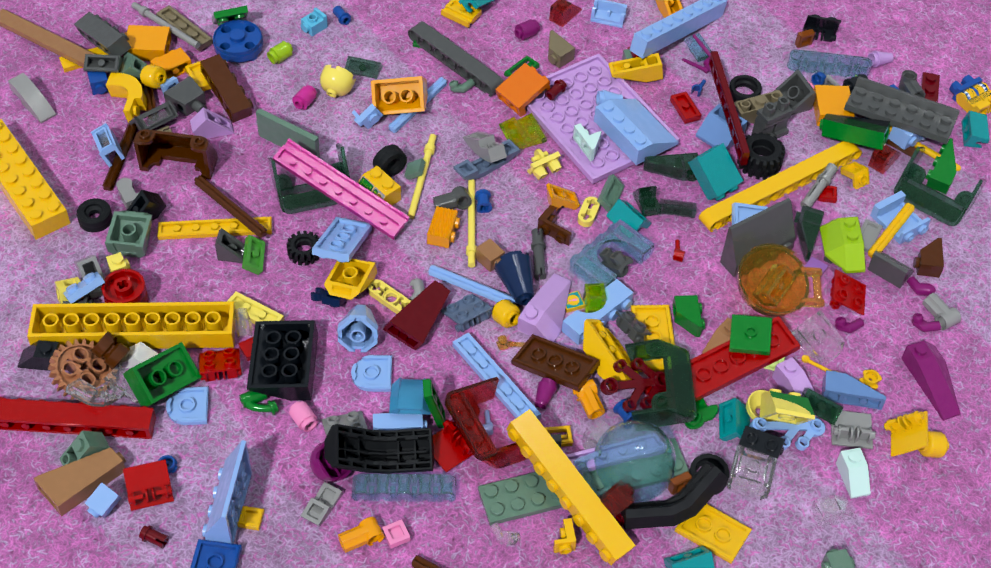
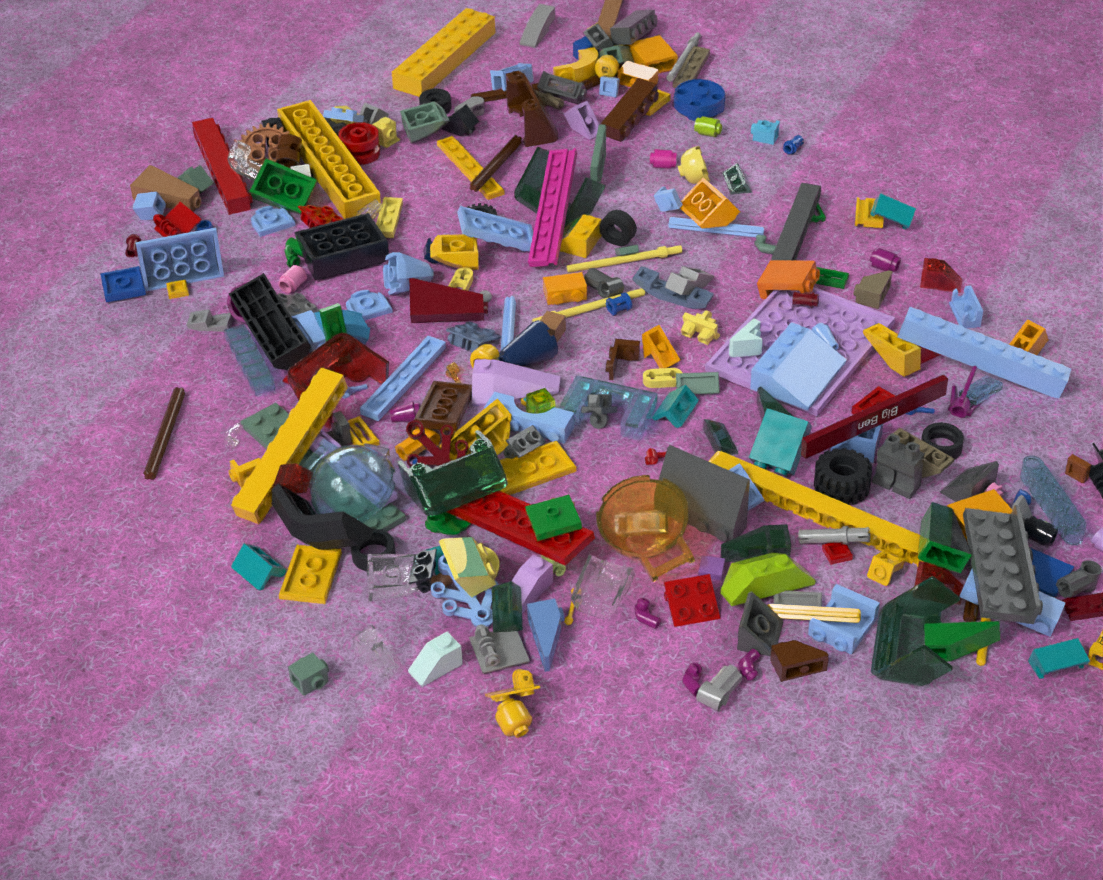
camera: 70 degrees right, 10 degrees down
(186, 96) = (605, 96): dark grey torso -> none
(224, 16) = (724, 80): green plate -> none
(228, 247) = (448, 178): dark grey slope -> none
(253, 254) = (451, 194): bright green plate -> none
(365, 533) = (189, 352): light orange piece -> none
(396, 534) = (199, 370): bright pink plate -> none
(523, 132) = (735, 303): clear neon green slope -> none
(538, 248) = (582, 358): dark grey pin -> none
(647, 201) = (709, 409): slope -> none
(688, 314) = (572, 479): green slope -> none
(873, 375) = (578, 643): yellow plate -> none
(933, 377) = (622, 696): magenta wedge -> none

